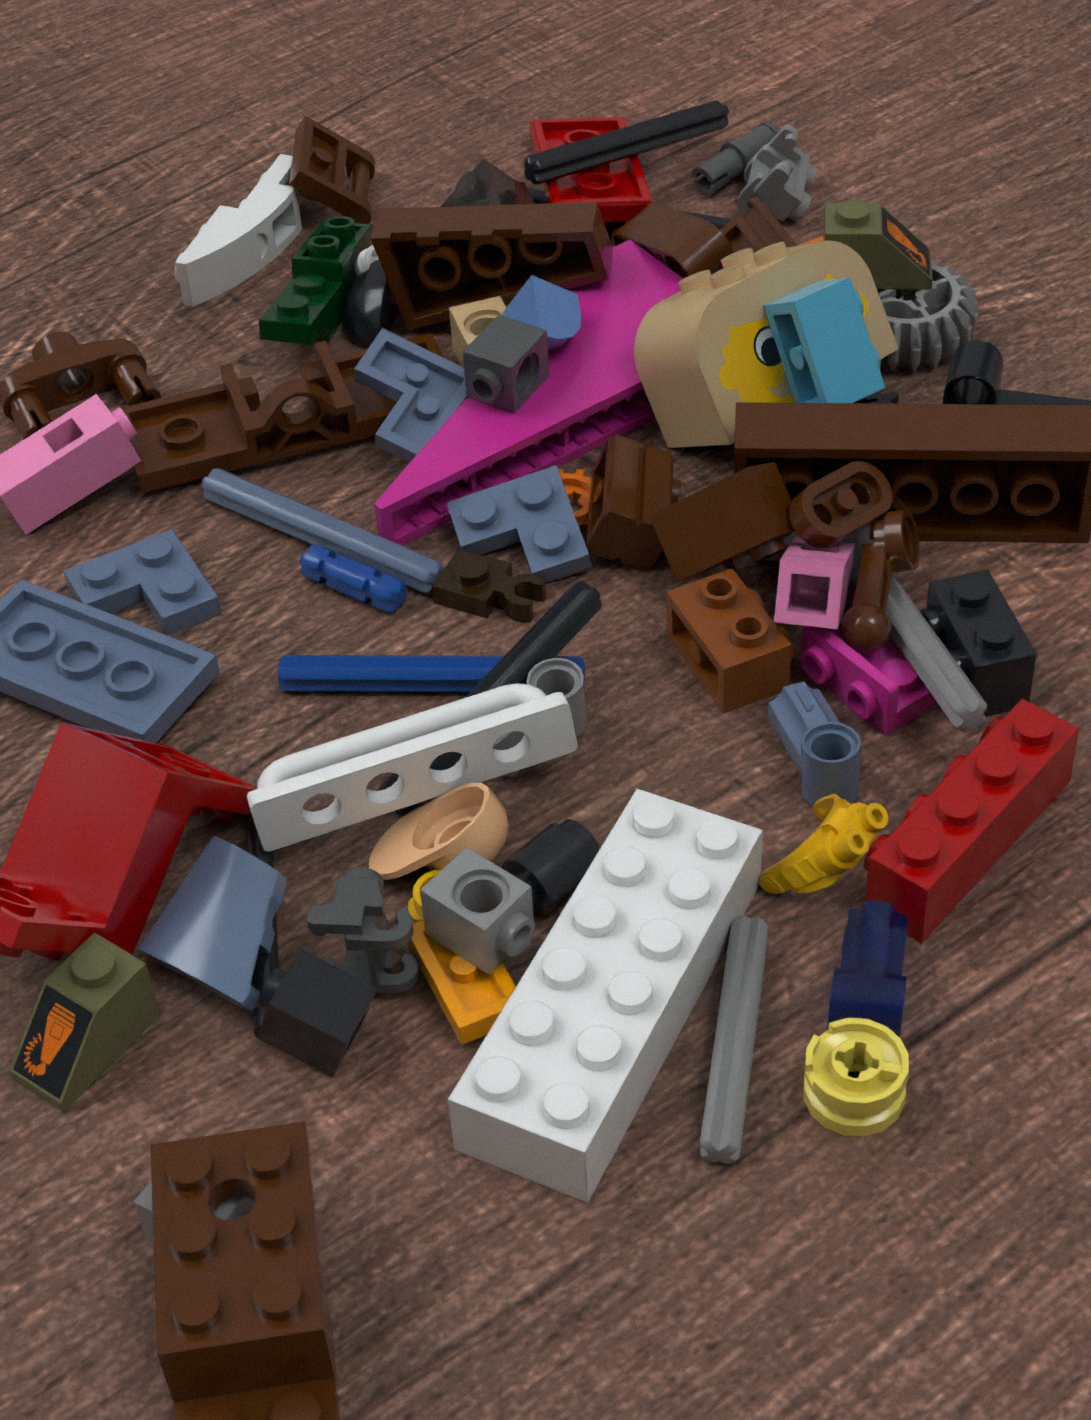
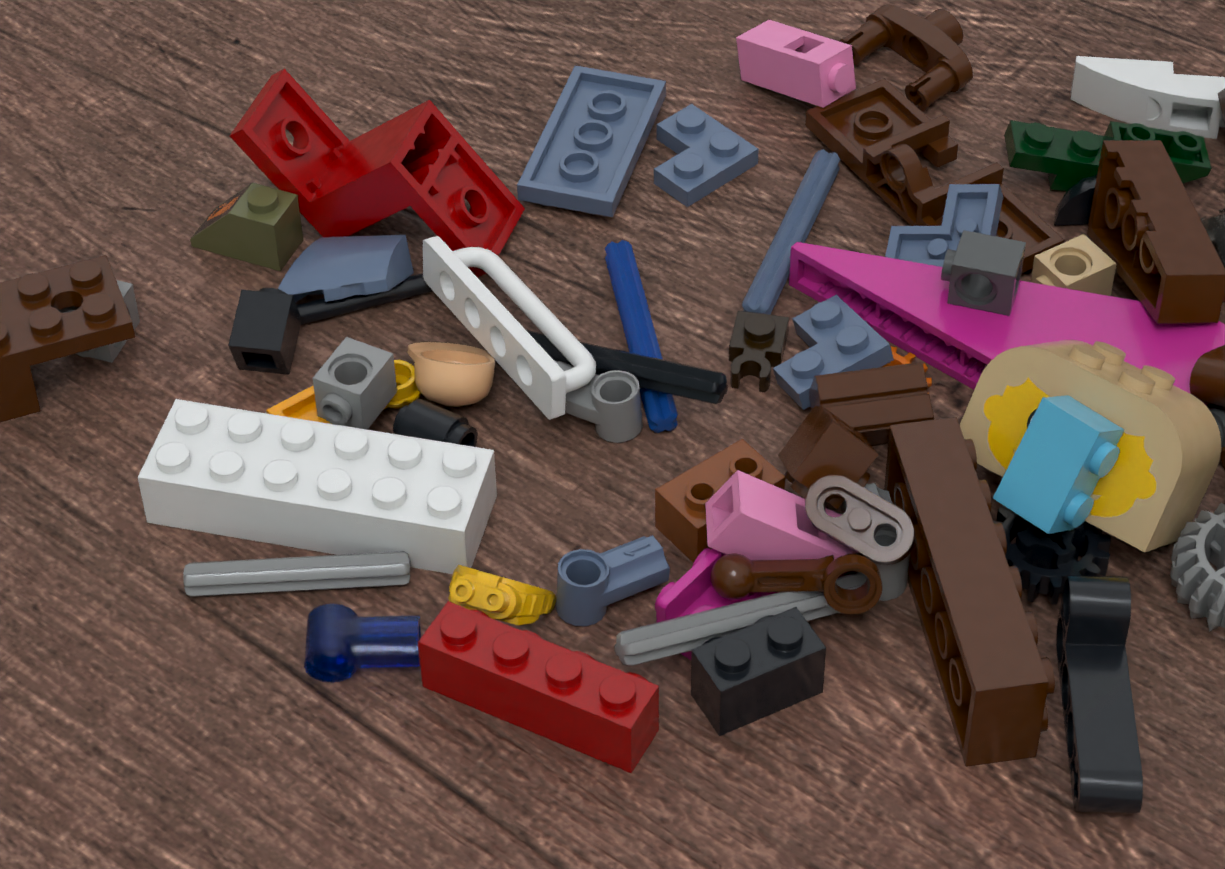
camera: 75 degrees right, 0 degrees up
(353, 578) = (738, 266): blue axle -> none
(361, 917) = (328, 323): dark grey piece -> none
(547, 308) = (1067, 287): medium blue brick -> none
(856, 1104) = (260, 646): light yellow wheel -> none

